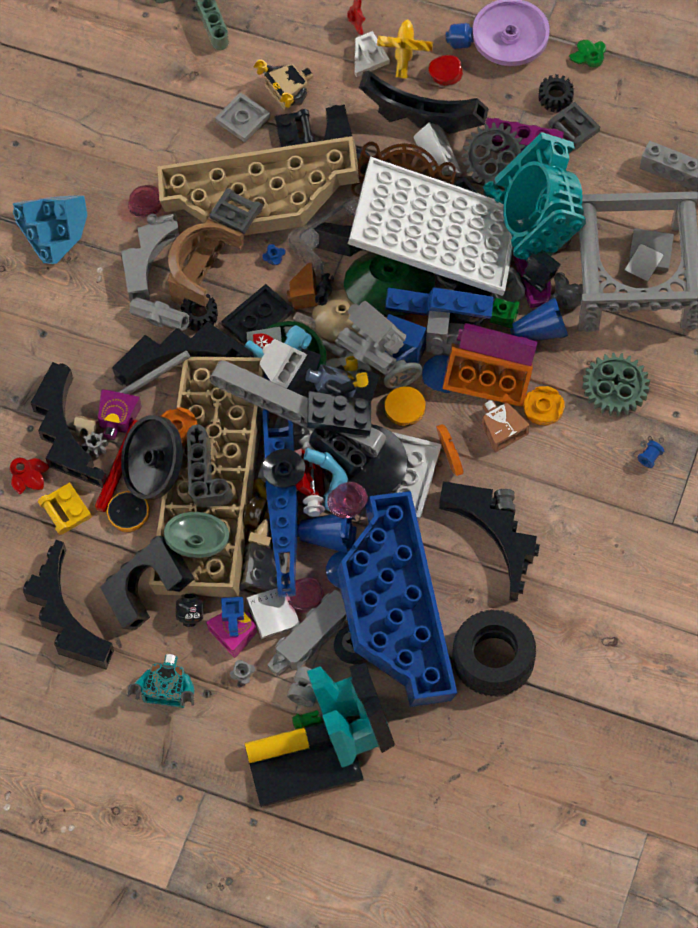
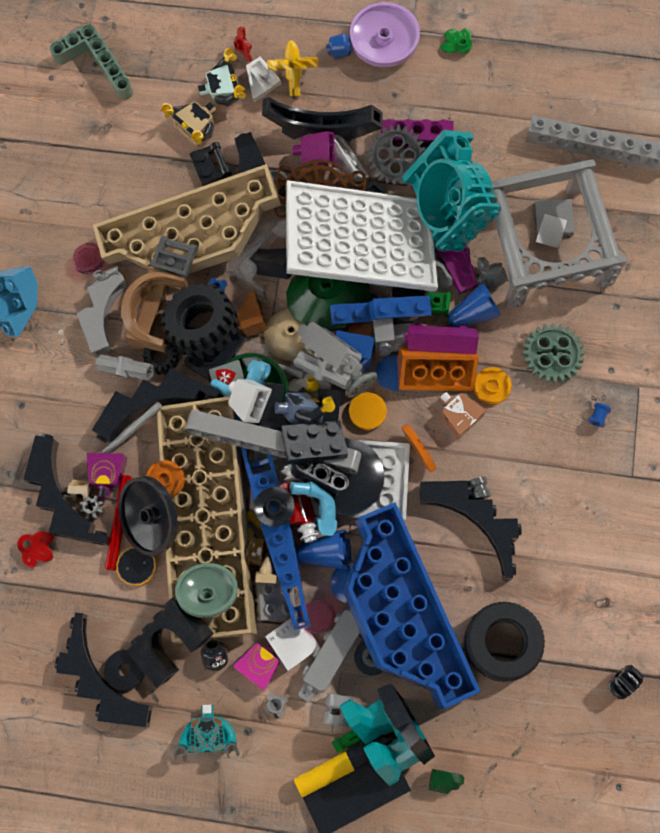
camera: 10 degrees left, 10 degrees up
(71, 506) = (82, 570): yellow plate -> none
(83, 601) = (113, 675): none -> black tile
(203, 465) = (198, 515): dark grey beam -> none
(232, 612) = (256, 653): blue plate -> none
(242, 117) = (160, 160): light grey plate -> none
(255, 297) = (186, 306): none -> black tyre
(324, 289) = (270, 313): black pin -> none
(326, 50) = (222, 82): none -> torso
(347, 500) = (339, 524): clear pink piece -> none
(400, 776) = (445, 781): none -> dark green rock
(411, 131) = (316, 147): none -> magenta torso
(445, 70) = (333, 81): red piece -> none
(493, 191) = (402, 189): teal bar -> none
(540, 270) = (464, 258): black brick -> none
(556, 84) = (437, 75): black tyre -> none
(578, 121) = (462, 107): dark grey plate -> none
(612, 716) = (625, 682): none -> black gear

